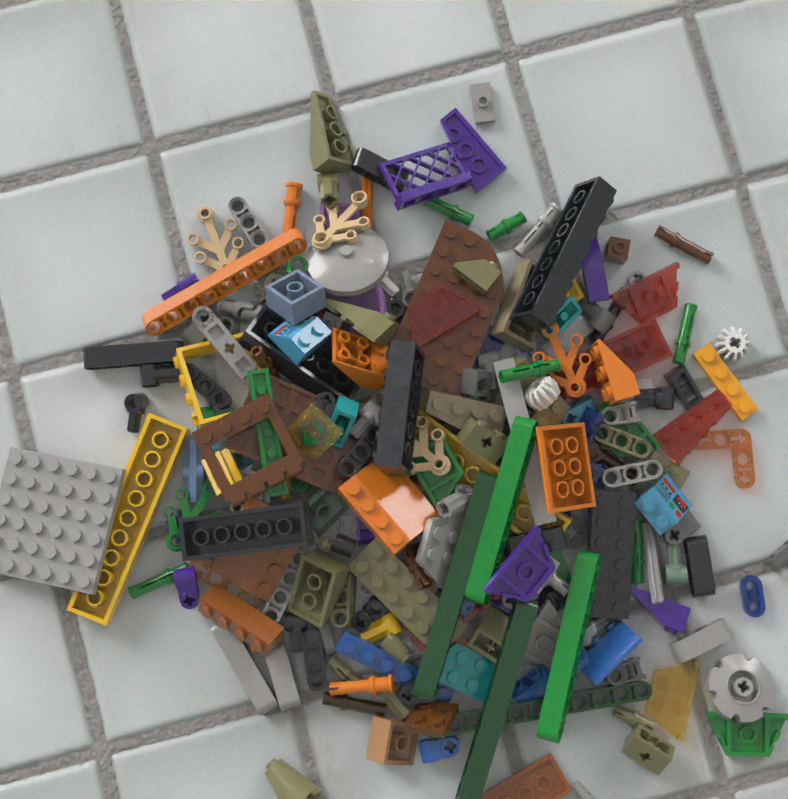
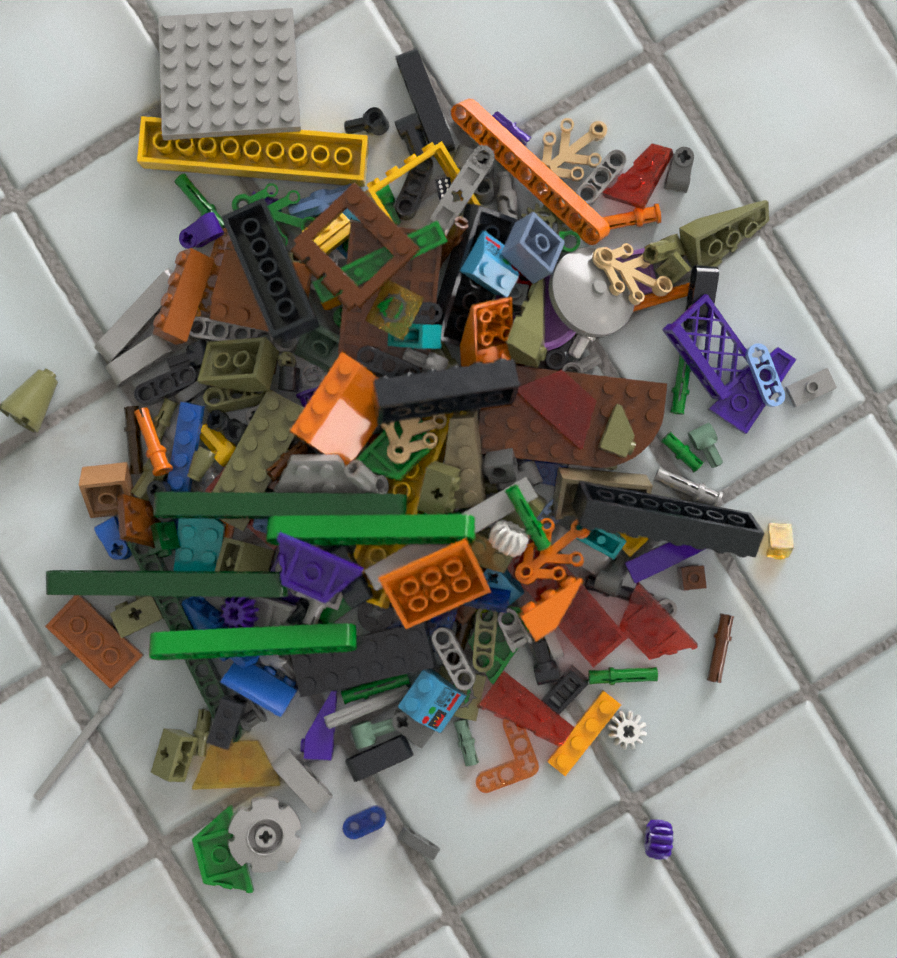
camera: 75 degrees right, 5 degrees up
(215, 359) = (442, 186): none -> black sticker
(260, 190) = (642, 178): none -> clear red wing
(265, 157) = (679, 173): none -> dark grey piece
(347, 185) = (673, 268): none -> olive bracket
(454, 700) = (164, 538): none -> dark green bracket
(467, 130) = (774, 376): none -> light blue beam
(501, 204) = (704, 439): none -> sand green axle
(520, 756) = (126, 621): none -> olive brick
(546, 652) = (239, 612): none -> dark purple gear
(605, 167) = (780, 540): none -> clear yellow bracket
(634, 690) = (226, 722): none -> black brick
(706, 486) = (466, 742): none -> sand green pin

